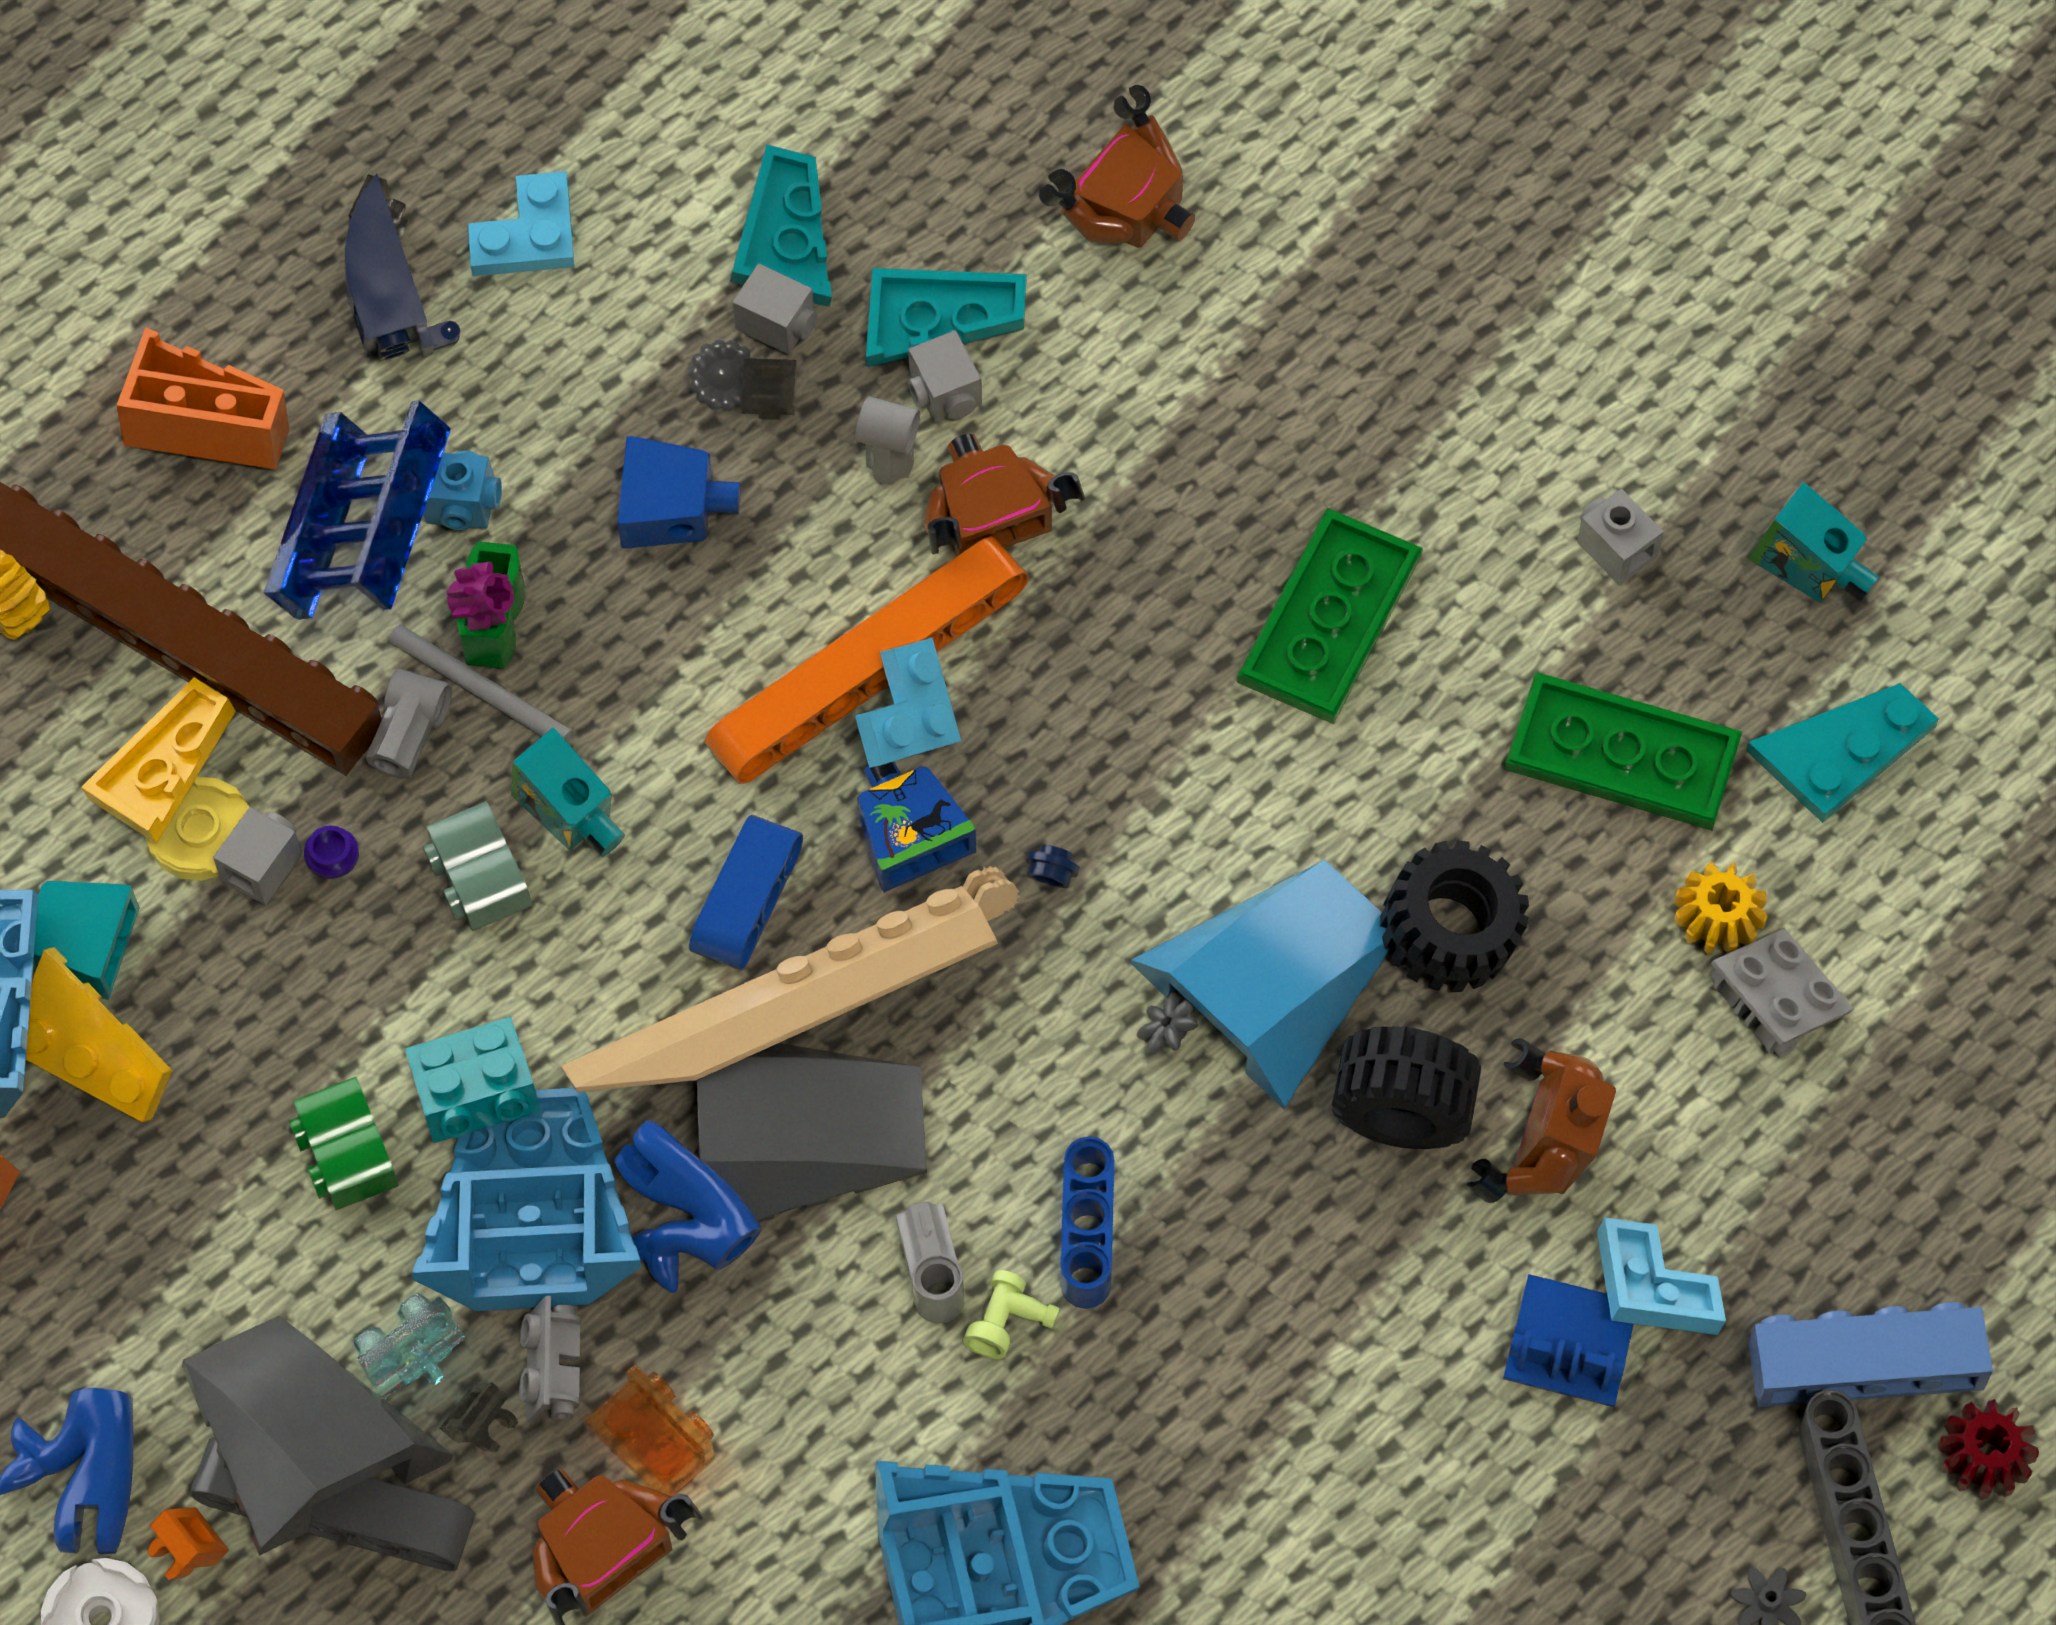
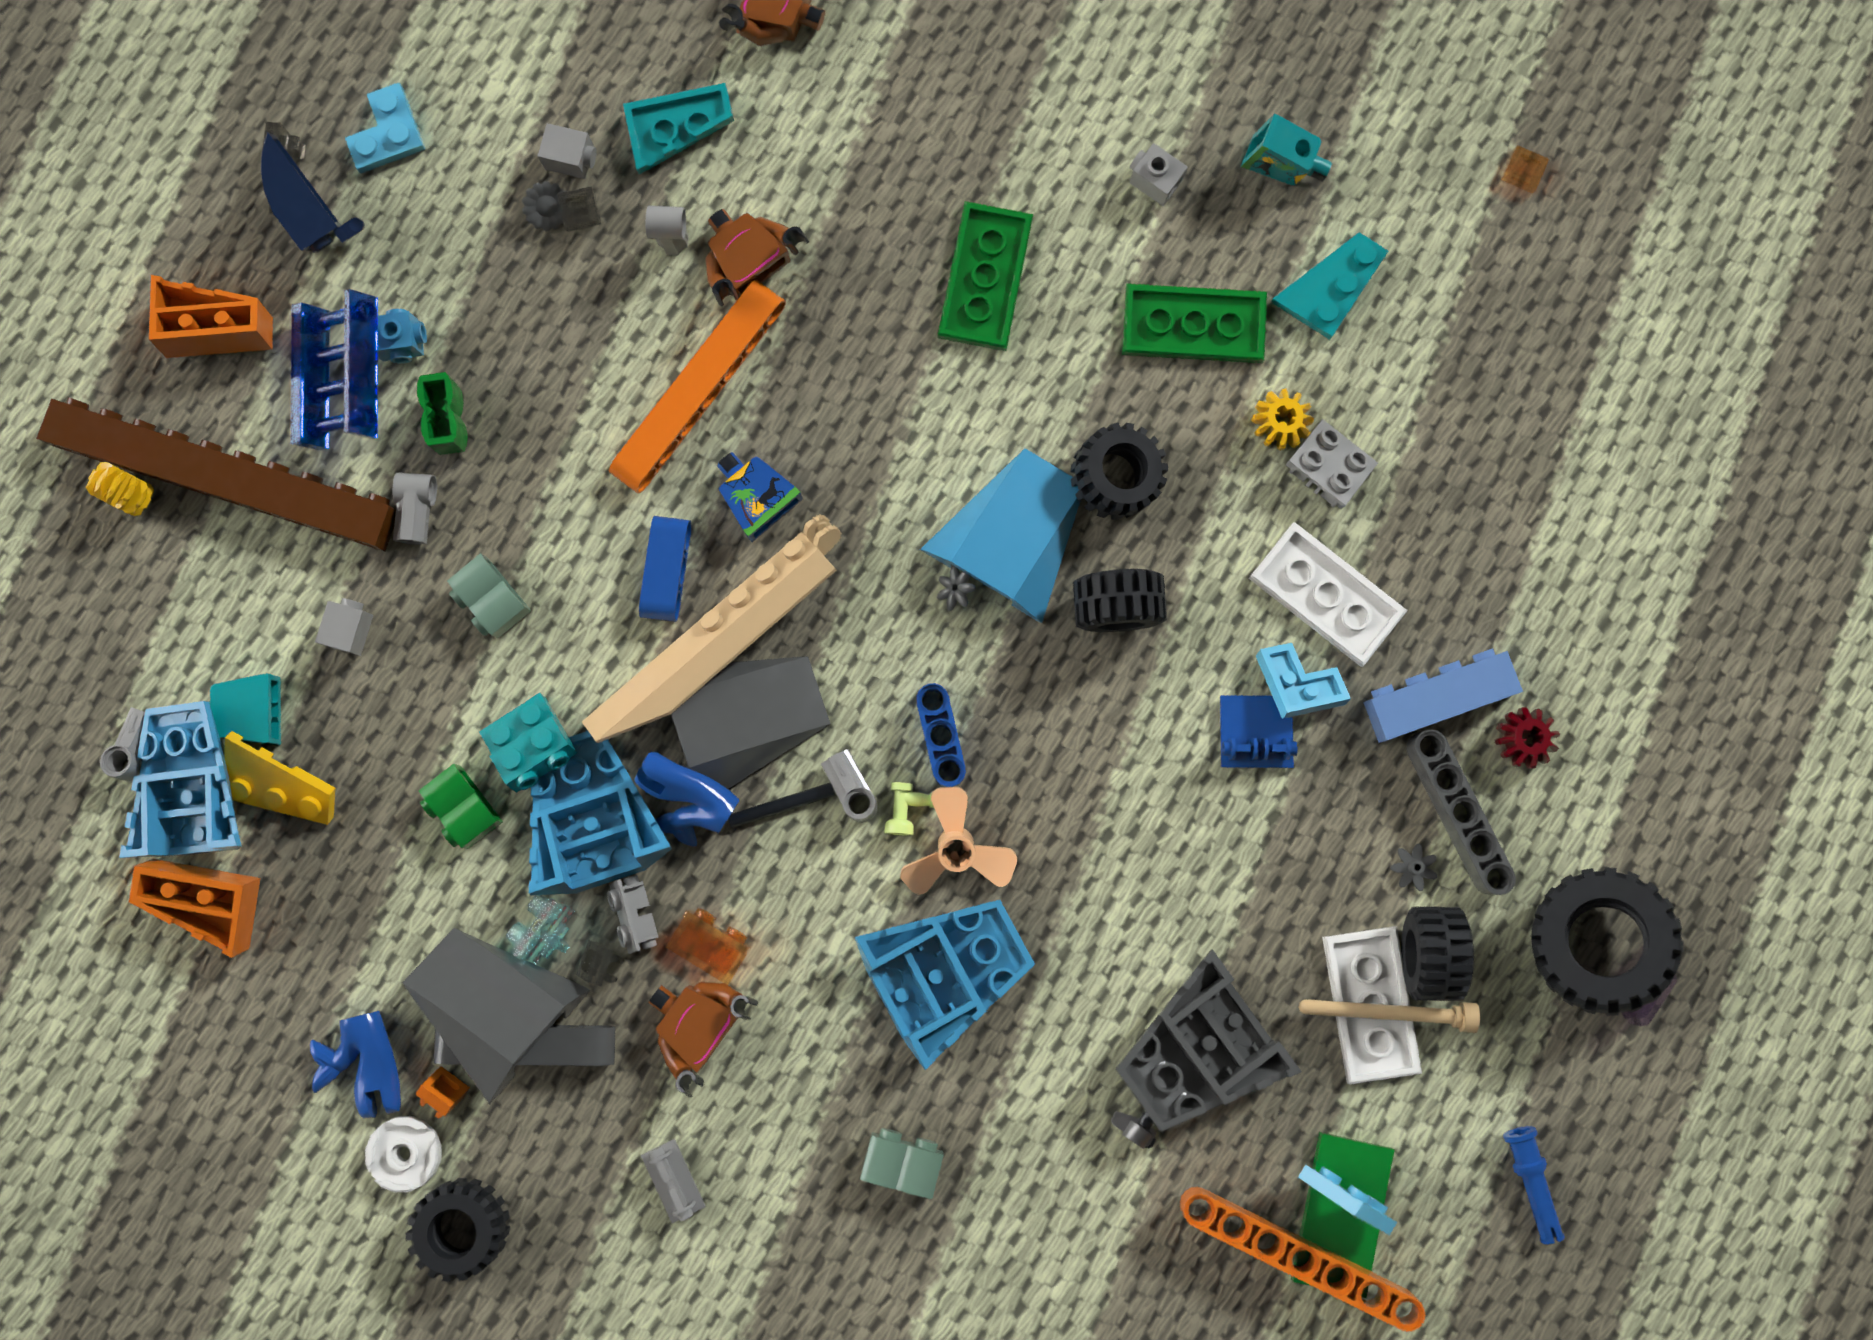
camera: 15 degrees left, 20 degrees up
(162, 760) = (262, 576): yellow wing -> none
(190, 849) = (306, 616): light yellow tile -> none
(331, 852) = (391, 609): dark purple plate -> none
(476, 683) = (452, 467): light grey bar -> none
(480, 596) = (432, 420): magenta gear -> none
(565, 794) = (518, 527): teal torso -> none
(669, 494) = (535, 302): blue torso -> none
(786, 224) = (555, 86): teal wing -> none
(819, 1265) = (781, 805): none -> black bar
(921, 707) = (742, 421): medium azure plate -> none
(944, 378) = (692, 172): light grey brick -> none
(1008, 1410) = (992, 862): none -> light nougat piece
(1052, 866) = (854, 500): dark blue plate -> none
(1560, 1130) = (1221, 596): dark orange torso -> none
(1730, 1173) = (1328, 594): none -> white tile

